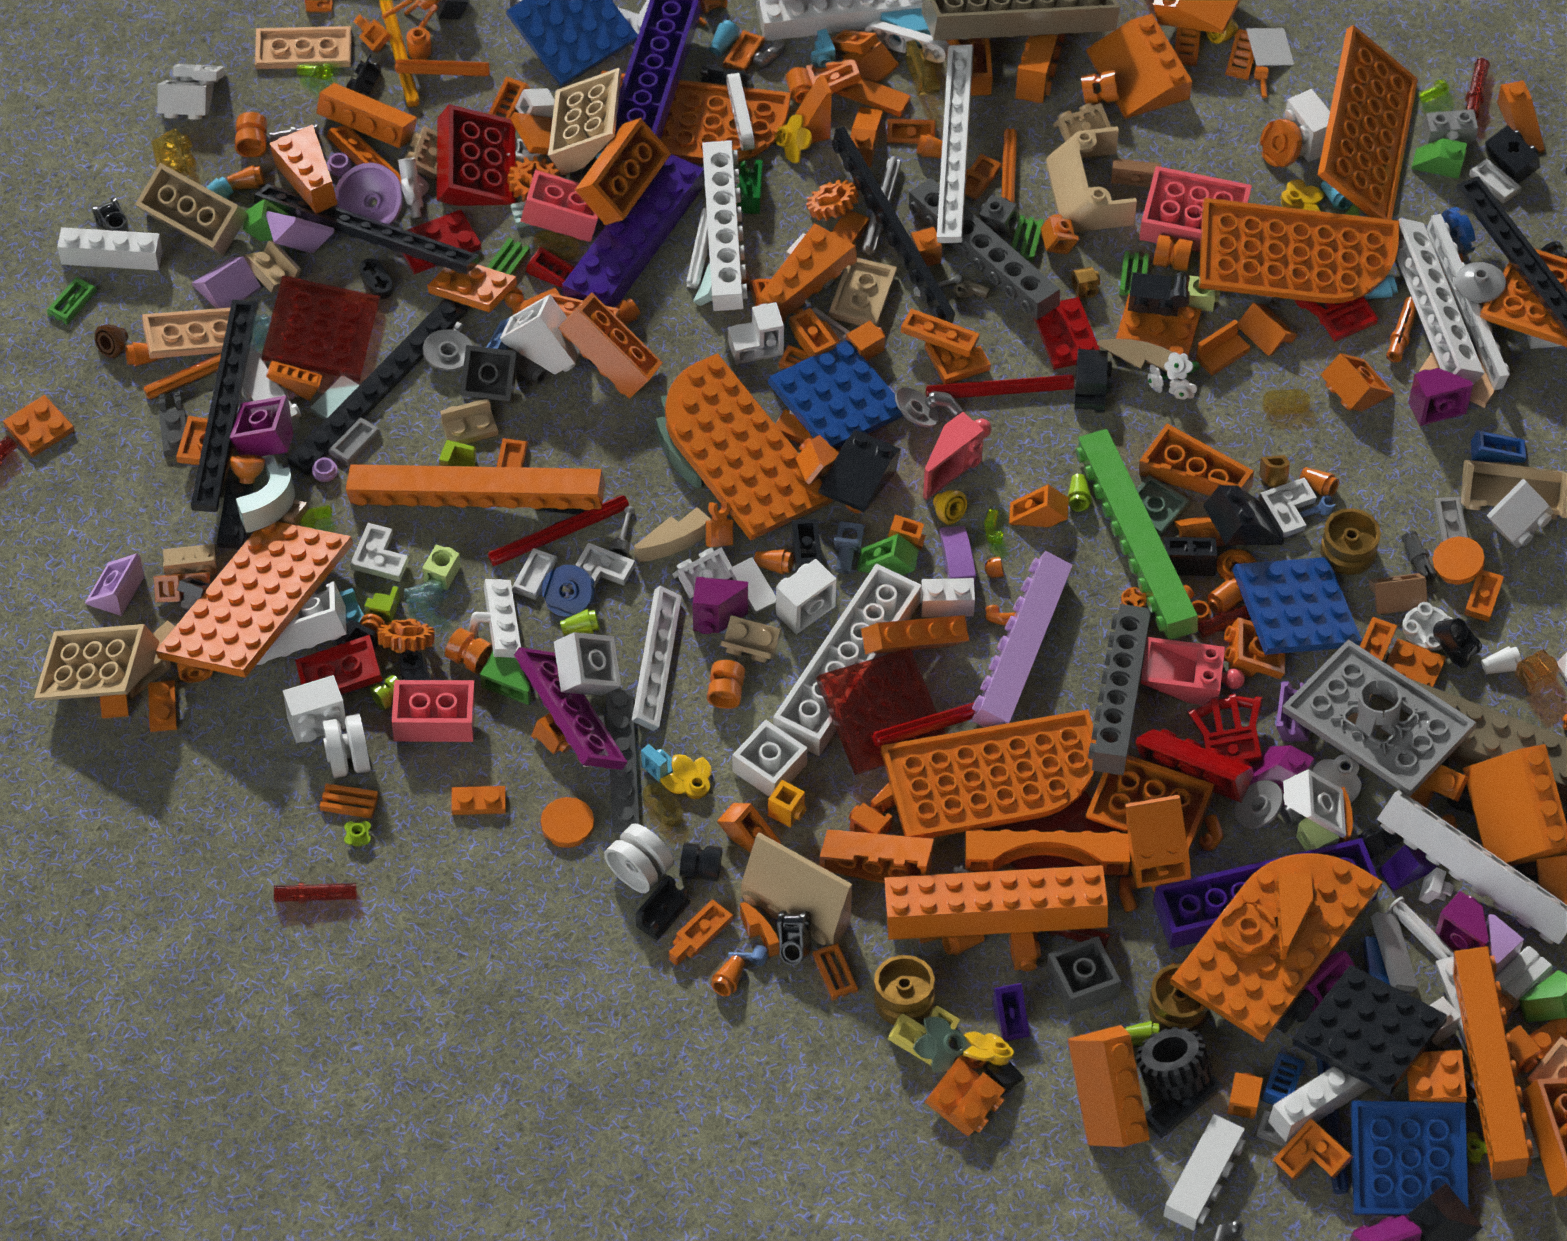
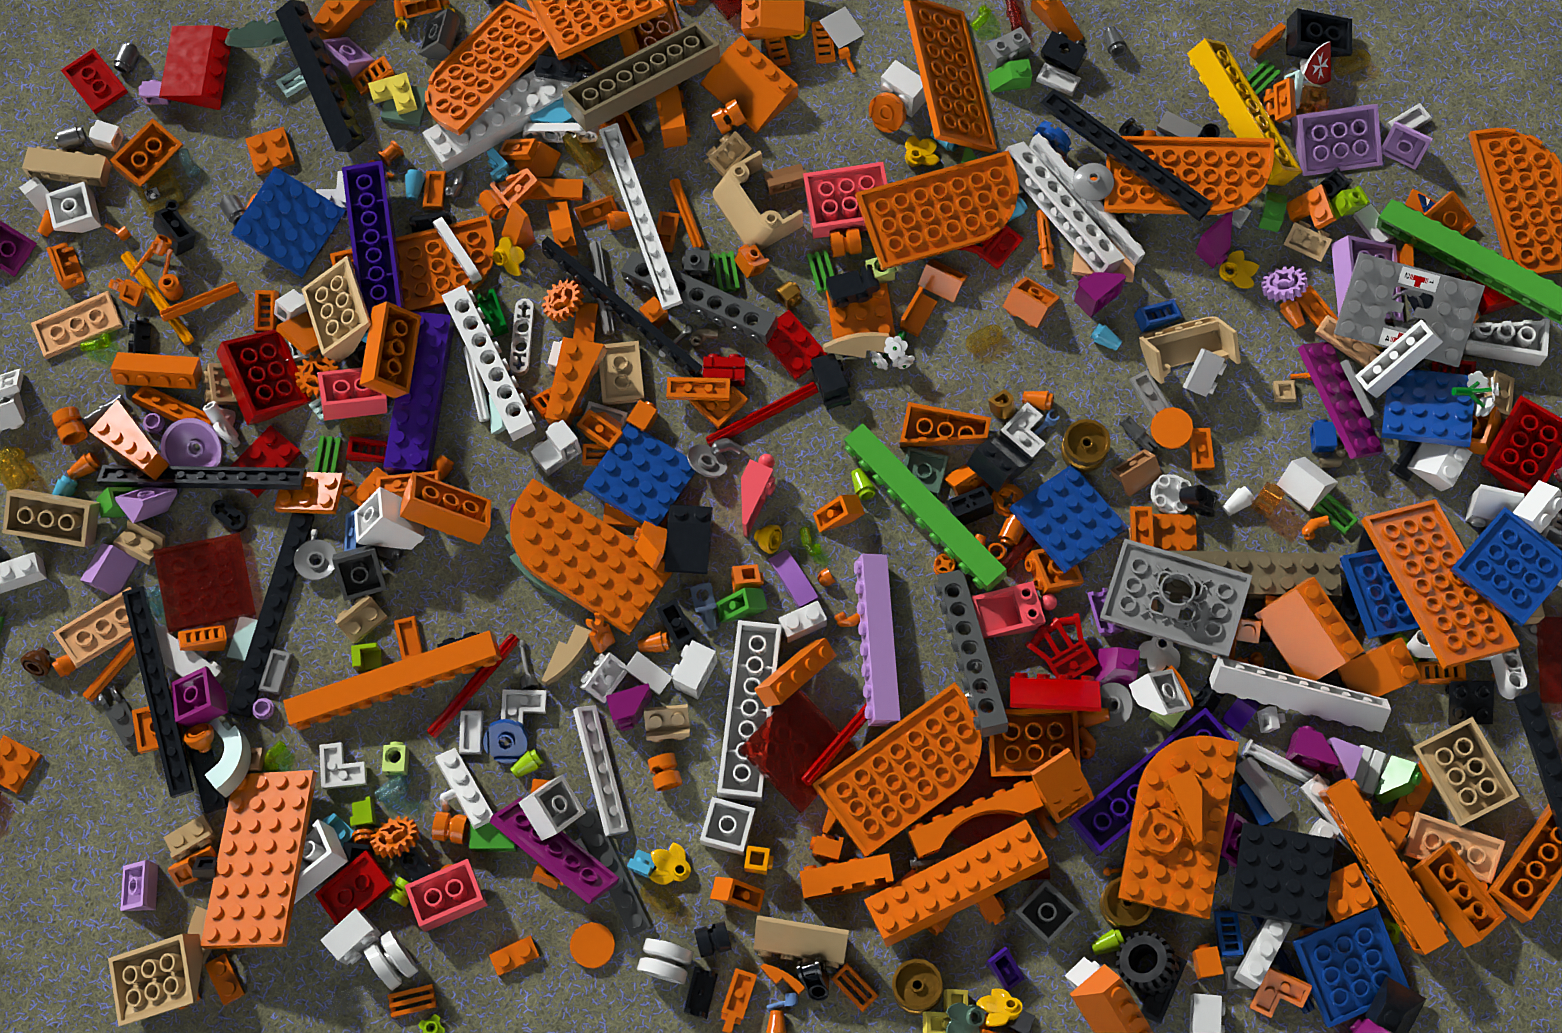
camera: 20 degrees left, 15 degrees up
(771, 222) = (522, 337): none -> white beam
(991, 327) = (725, 367): none -> red brick
(1230, 807) = (1092, 718): none -> orange cone
(1426, 447) = (1105, 337): none -> medium azure cone

